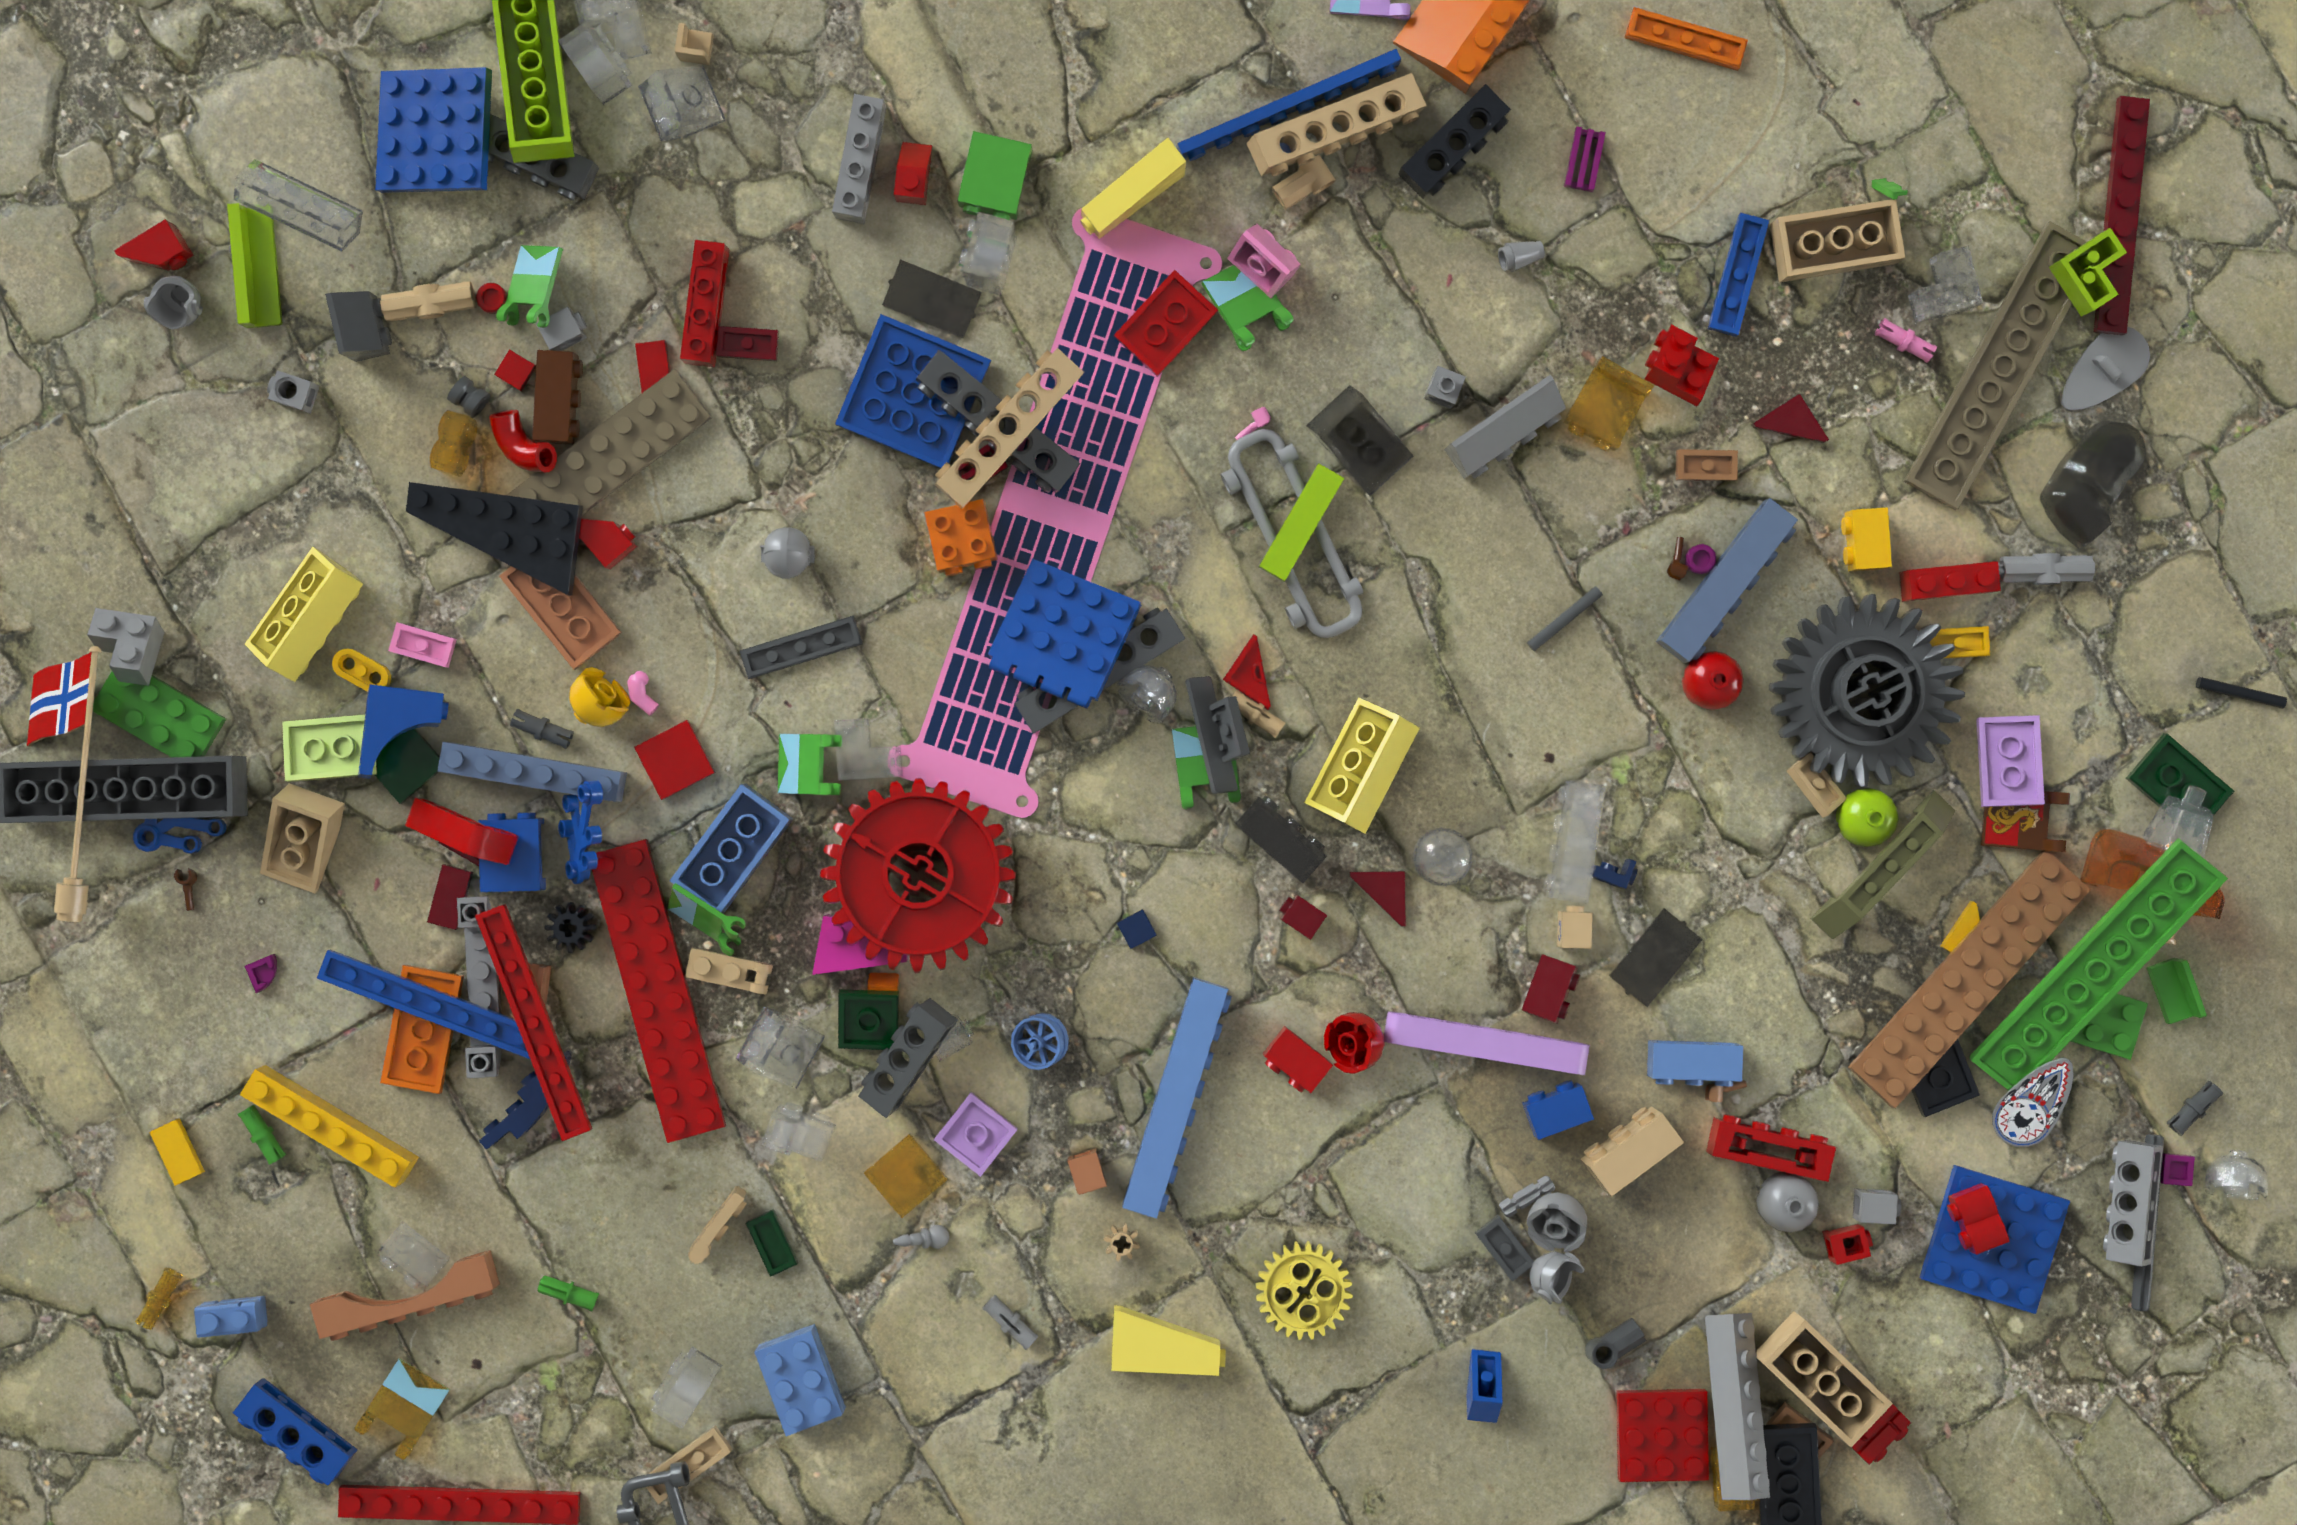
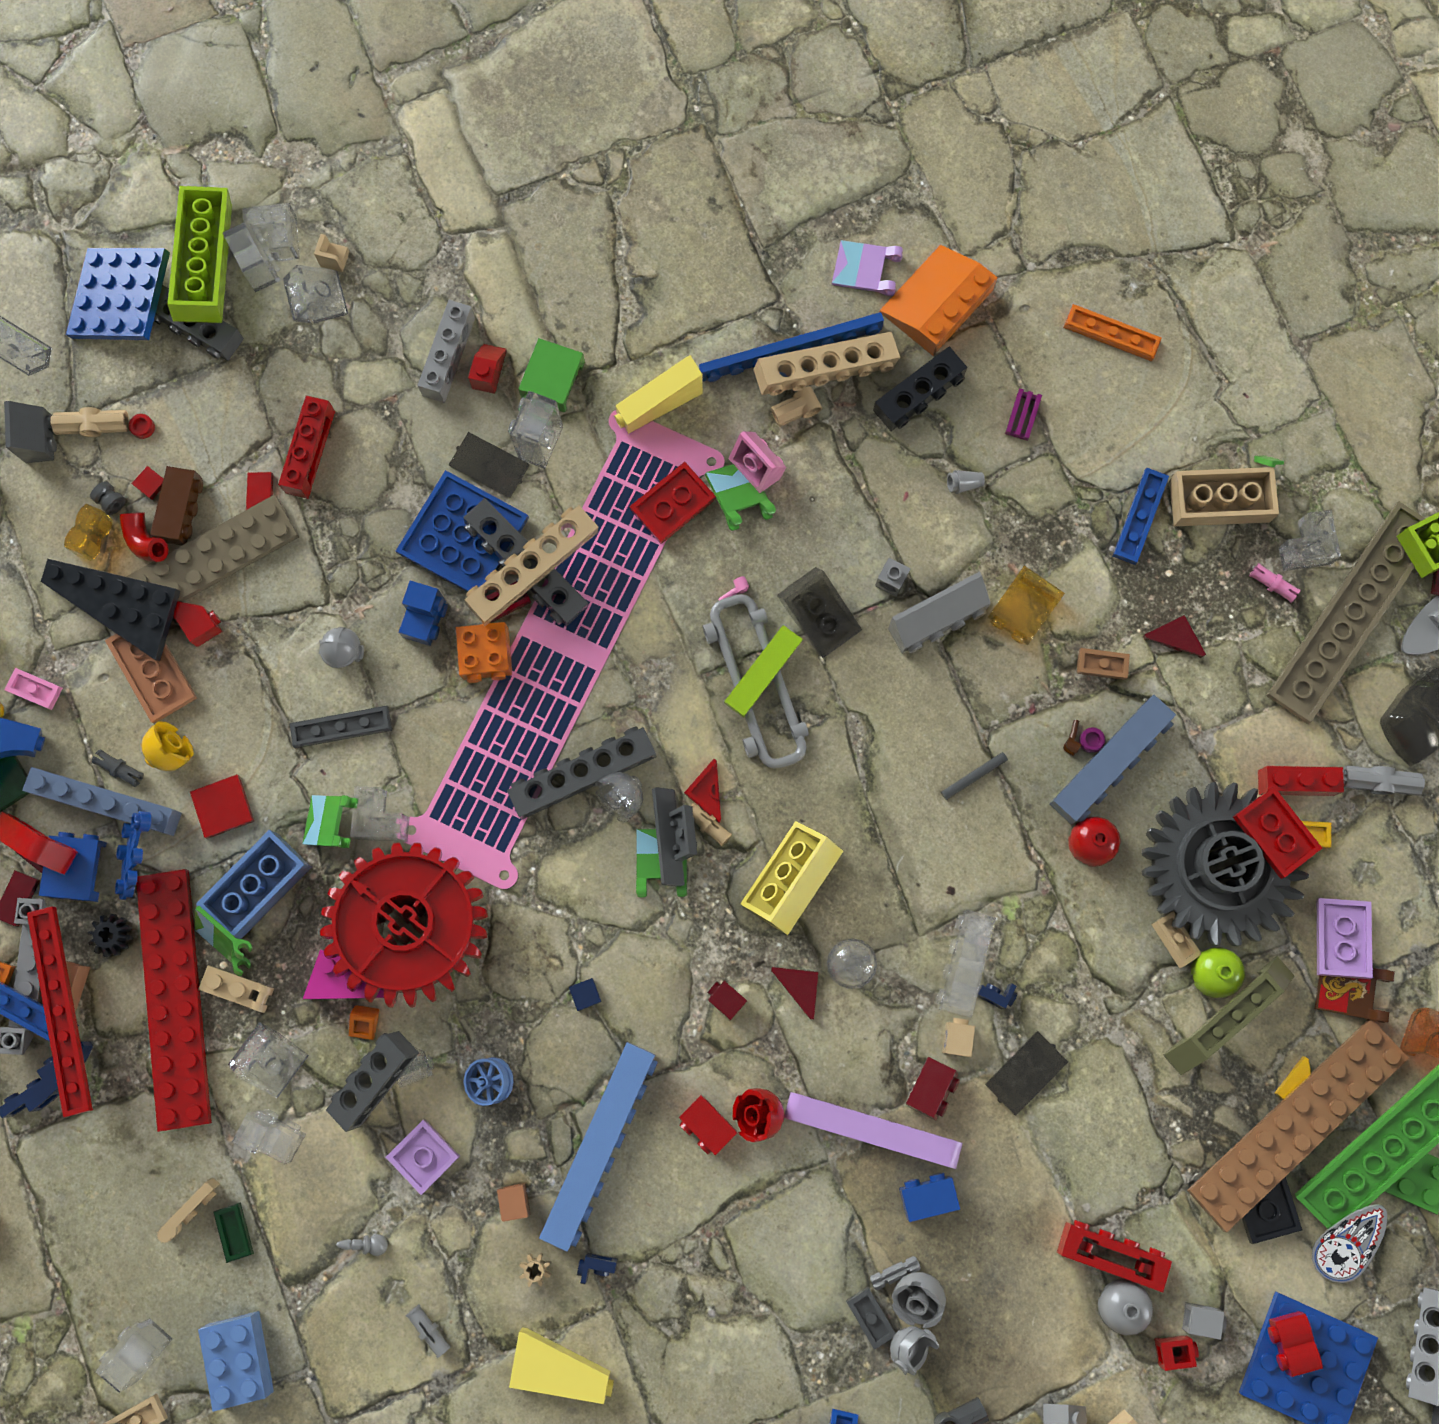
camera: 15 degrees right, 10 degrees down
(532, 284) = (172, 417): bright green flag -> none
(564, 330) = (191, 454): light grey brick -> none
(567, 1292) = (50, 1255): bright green axle -> none
(637, 692) = (201, 748): bright pink arm -> none
(747, 343) = (336, 482): dark red plate -> none
(867, 1018) = (344, 1043): dark green tile -> none
(880, 499) = (423, 612): none -> blue brick
(905, 1175) = (357, 1186): clear yellow tile -> none
(1063, 633) = (555, 738): blue hinge -> none
(1195, 1227) = (600, 1264): none -> dark blue bracket
(1281, 837) = (715, 929): clear smoke brick -> none
(1326, 1305) = (707, 1350): light yellow gear -> none
(1631, 1150) = (990, 1241): tan brick -> none
(1680, 365) = (1087, 581): red plate -> none
(1694, 1062) = (1053, 1169): medium blue brick -> none
(1715, 1093) = (1068, 1199): medium nougat hand -> none
(1867, 539) = (1232, 739): yellow brick -> none
(1925, 649) = (1278, 832): none -> red plate

